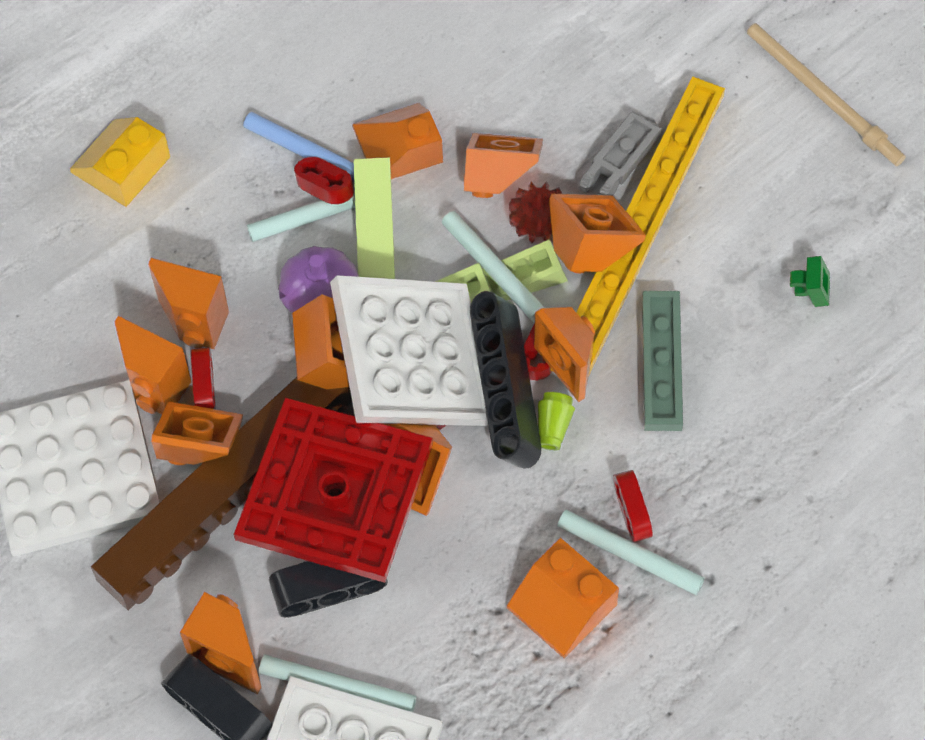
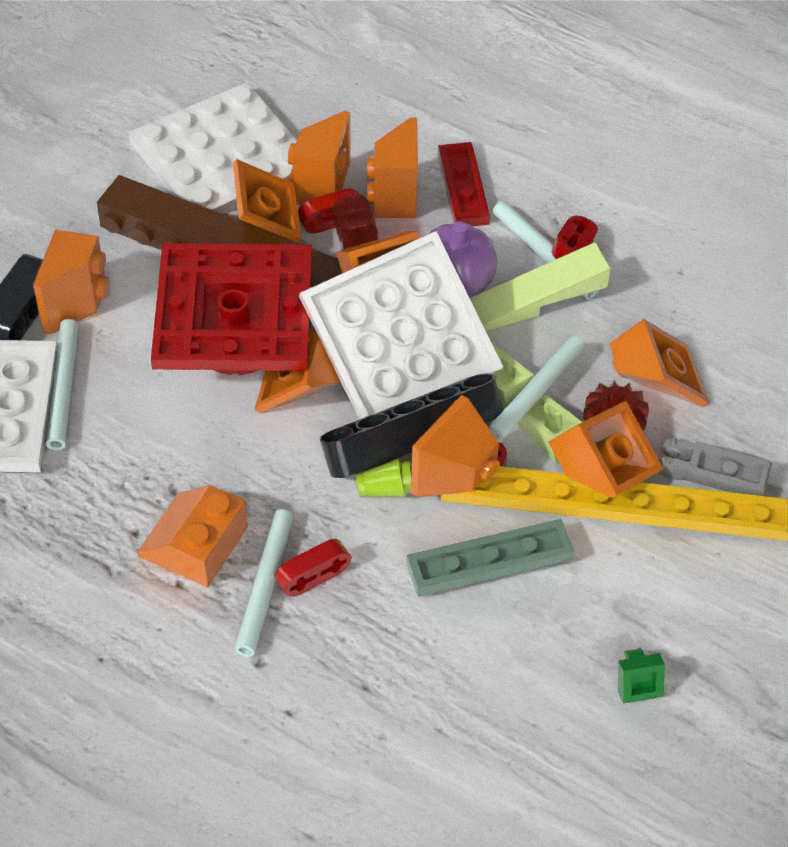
camera: 70 degrees right, 10 degrees down
(123, 159) = (531, 104): yellow slope -> none
(210, 255) = (463, 184): none -> red tile
(243, 362) = (354, 221): none -> clear red gear
(294, 142) = (610, 212): light blue piece -> none
(316, 586) = (138, 329): black beam -> none
(404, 136) = (649, 290): orange slope -> none

